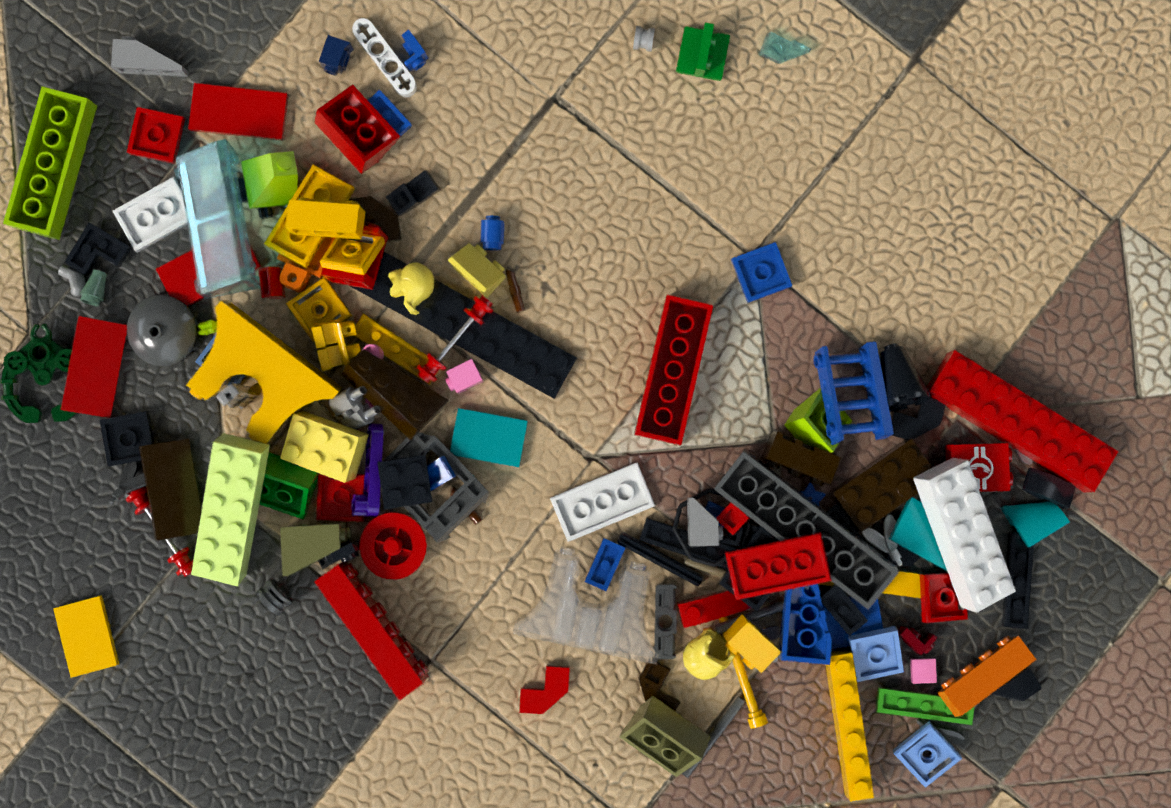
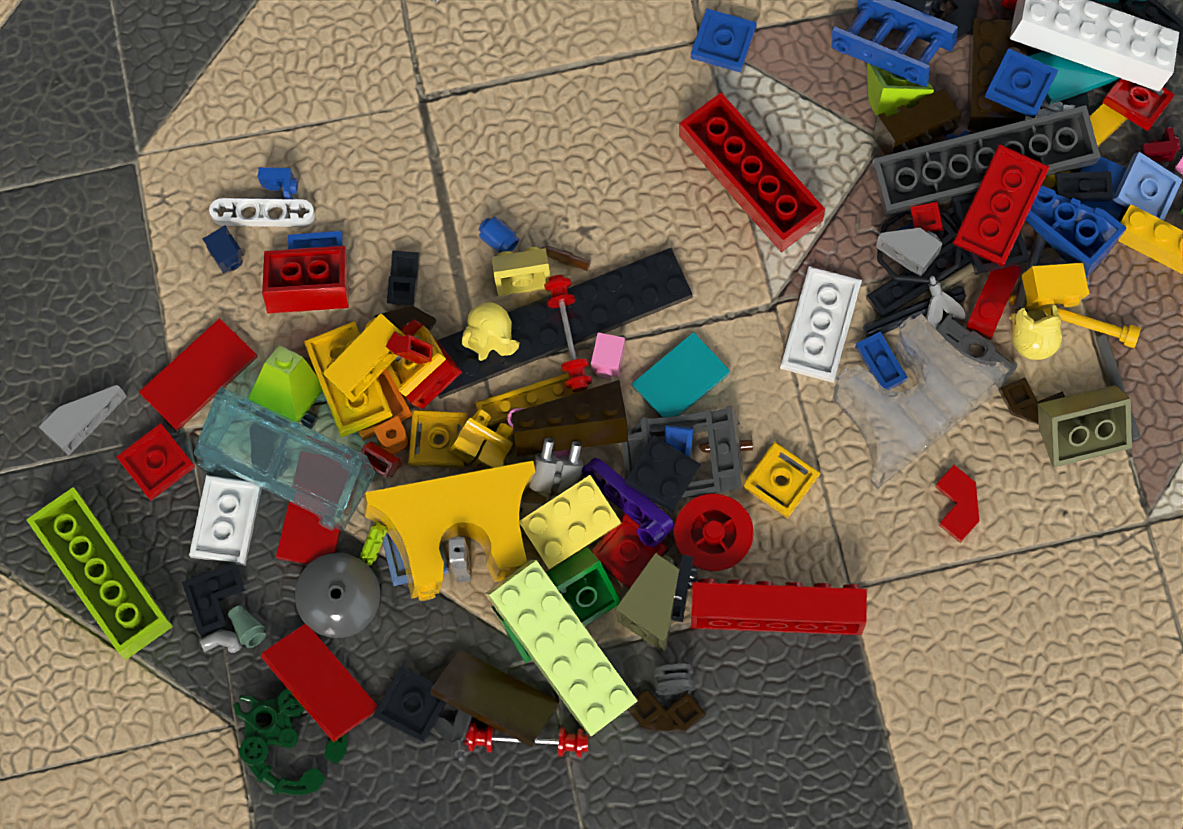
camera: 45 degrees left, 15 degrees down
(254, 616) = (676, 719): none -> dark brown tile
(348, 245) = (400, 345): none -> red piece
(462, 572) = (775, 465): none -> yellow piece
(676, 572) = (939, 302): none -> light grey piece
(883, 512) = (1021, 83): none -> blue plate

